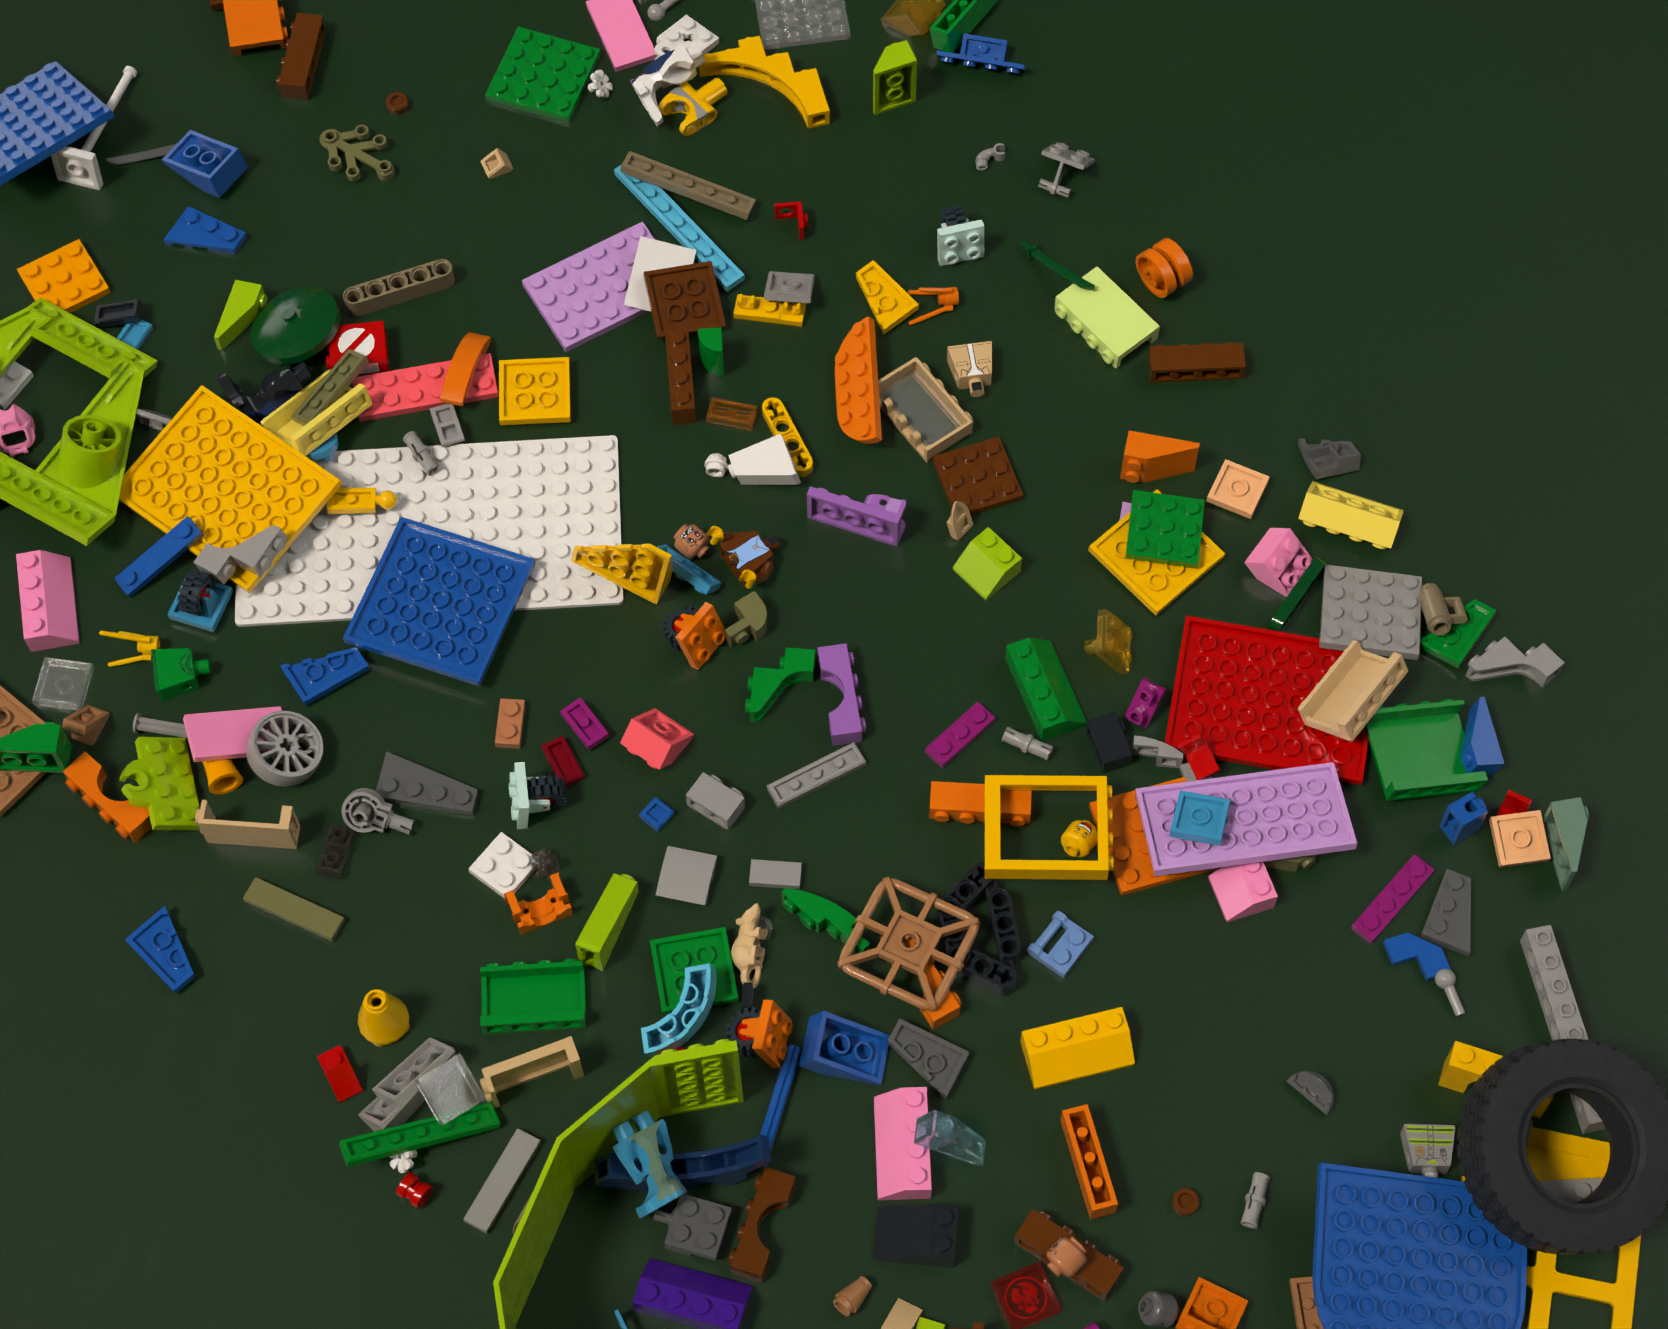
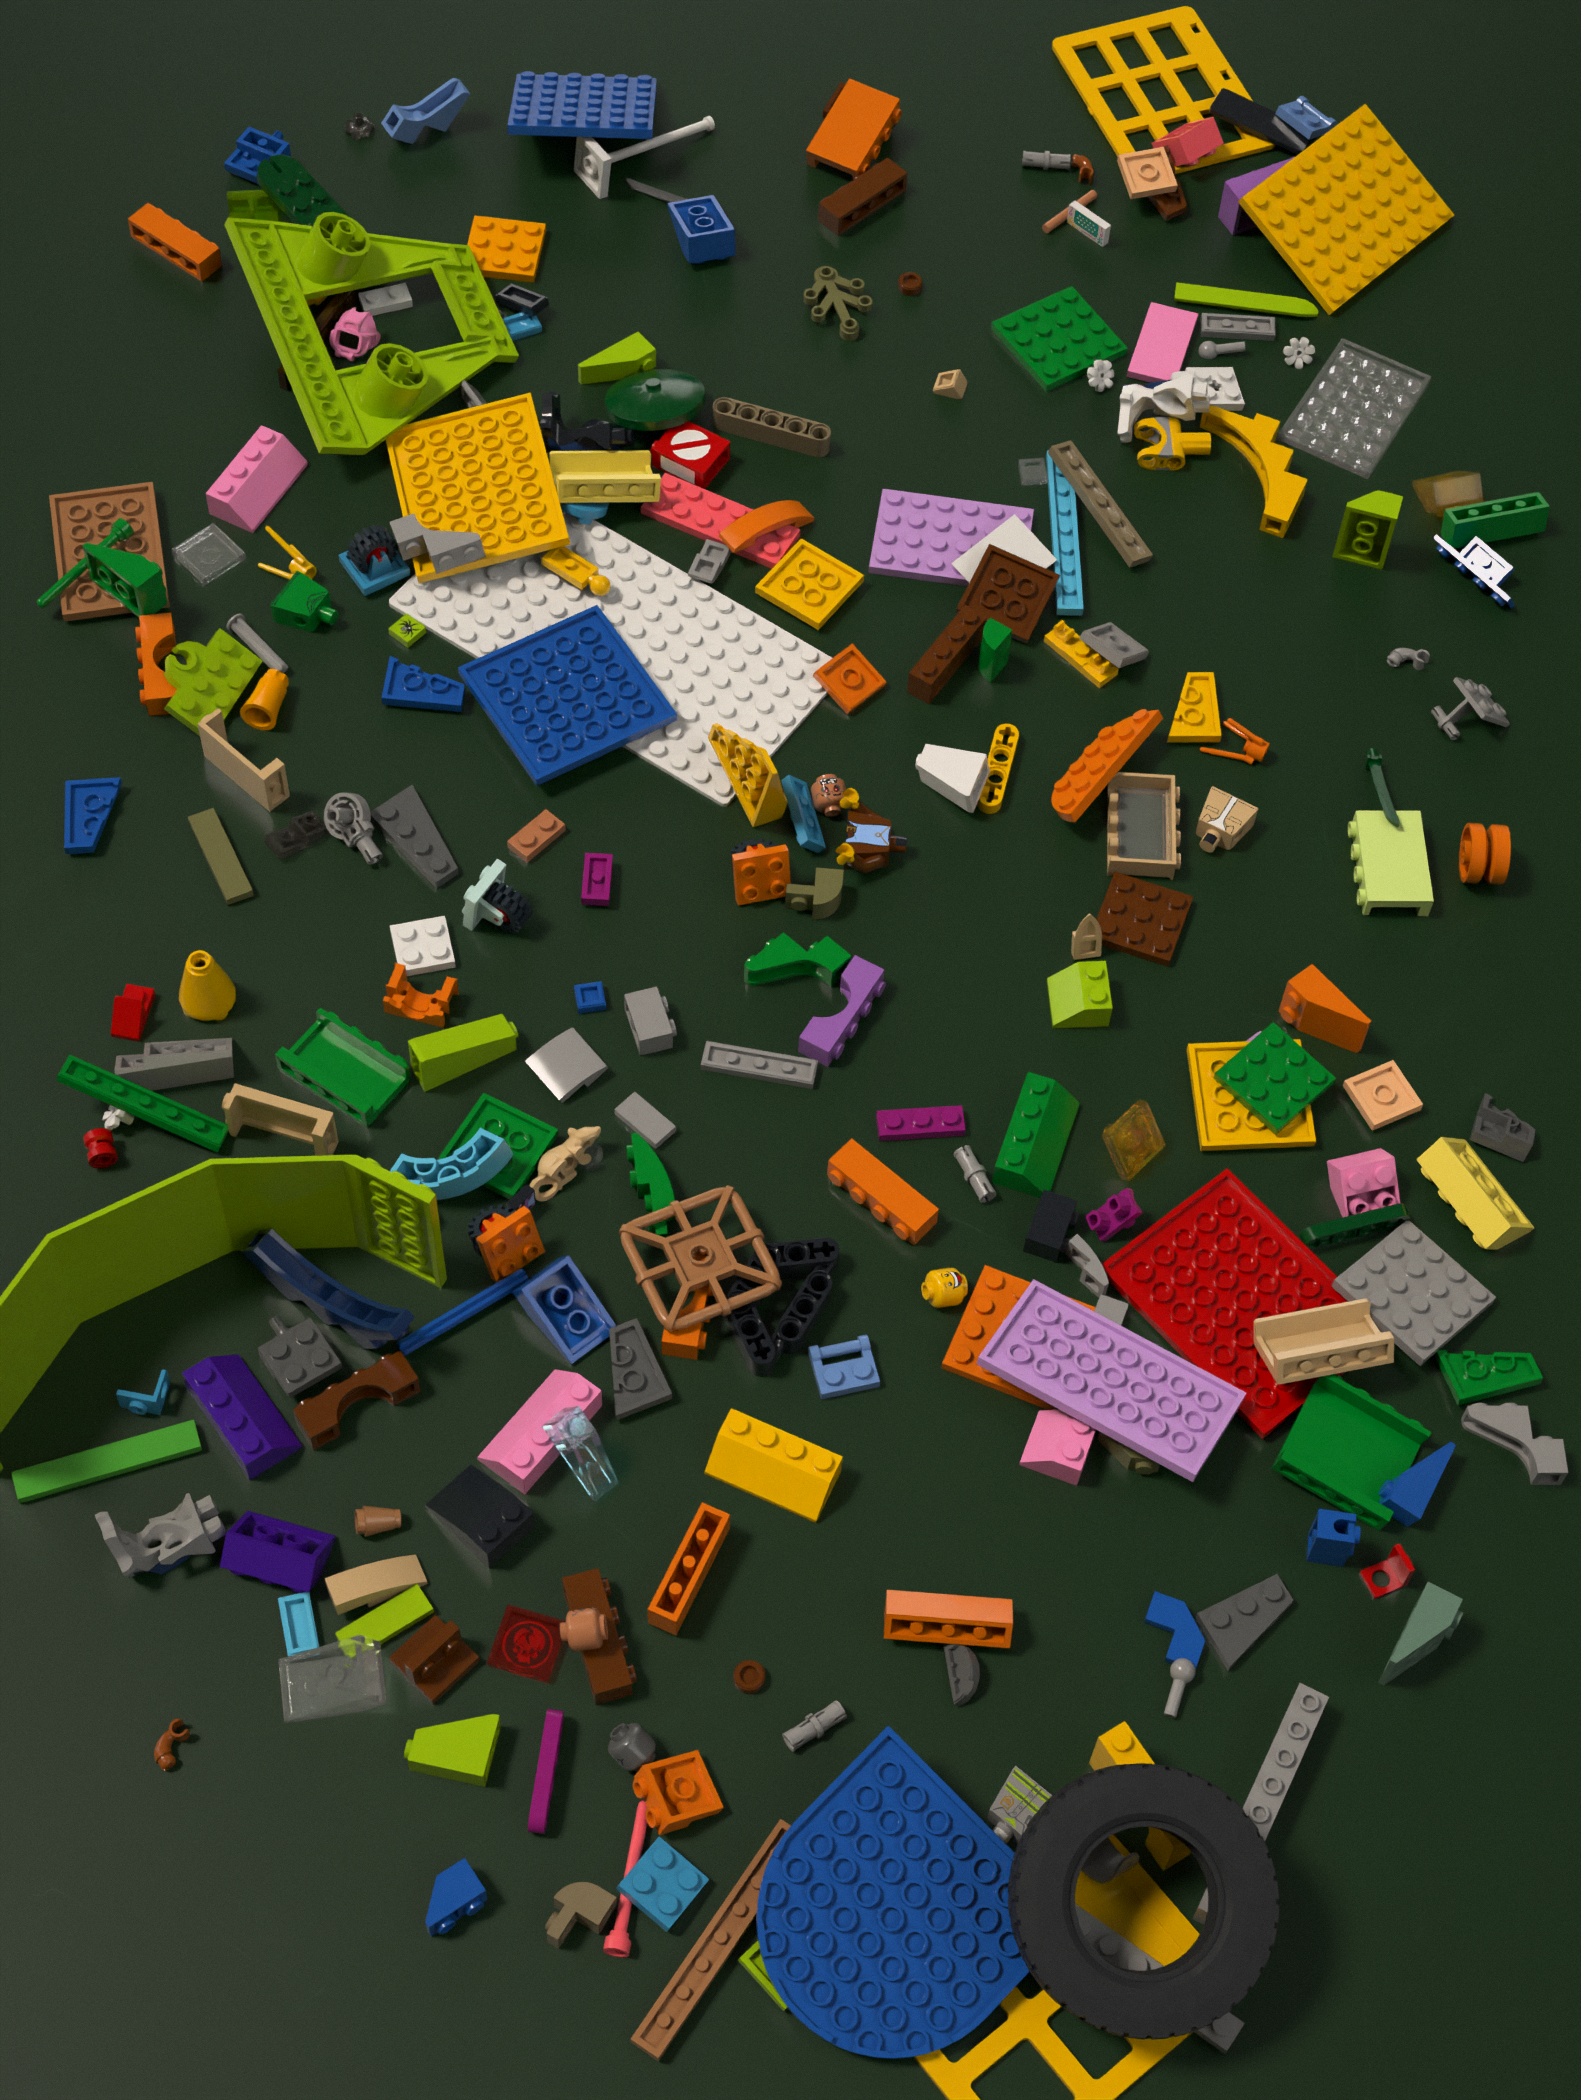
camera: 35 degrees right, 5 degrees down
(86, 724) = (195, 595): medium nougat slope -> none
(159, 556) = (374, 505): blue plate -> none
(204, 231) = (652, 282): blue wing -> none
(223, 732) = (302, 683): bright pink tile -> none
(271, 636) = (407, 630): none -> lime tile
(307, 735) = (345, 744): light grey piece -> none
(331, 386) = (638, 462): olive tile -> none
(421, 453) = (663, 568): light grey pin -> none
(450, 1089) = (198, 1084): clear tile -> none
(545, 863) = (456, 966): clear smoke plant -> none
(563, 761) = (551, 898): dark red tile -> none
(614, 192) = (1032, 471): none -> clear tile
(627, 443) = (849, 679): none -> orange plate
(656, 738) = (646, 933): coral slope -> none
(656, 1168) = (302, 1241): dark azure hips -> none
(716, 465) = (910, 748): white plate -> none
(730, 417) = (963, 720): clear orange tile -> none
(795, 213) = (1179, 592): red bracket -> none
(865, 518) = (1003, 881): medium lavender plate -> none
(958, 238) = (1309, 703): light aqua plate -> none
(1046, 869) = (959, 1298): yellow window -> none
(1196, 362) = (1443, 958): reddish brown brick -> none
(1199, 757) = (1122, 1296): red bracket -> none
(1200, 818) = (1064, 1343): dark azure plate -> none
(1278, 1061) = (948, 1619): none -> orange brick
(1392, 899) = (1199, 1562): magenta plate -> none
(1436, 612) = (1480, 1333): dark tan piece -> none
(1519, 838) = (1375, 1600): light nougat plate -> none

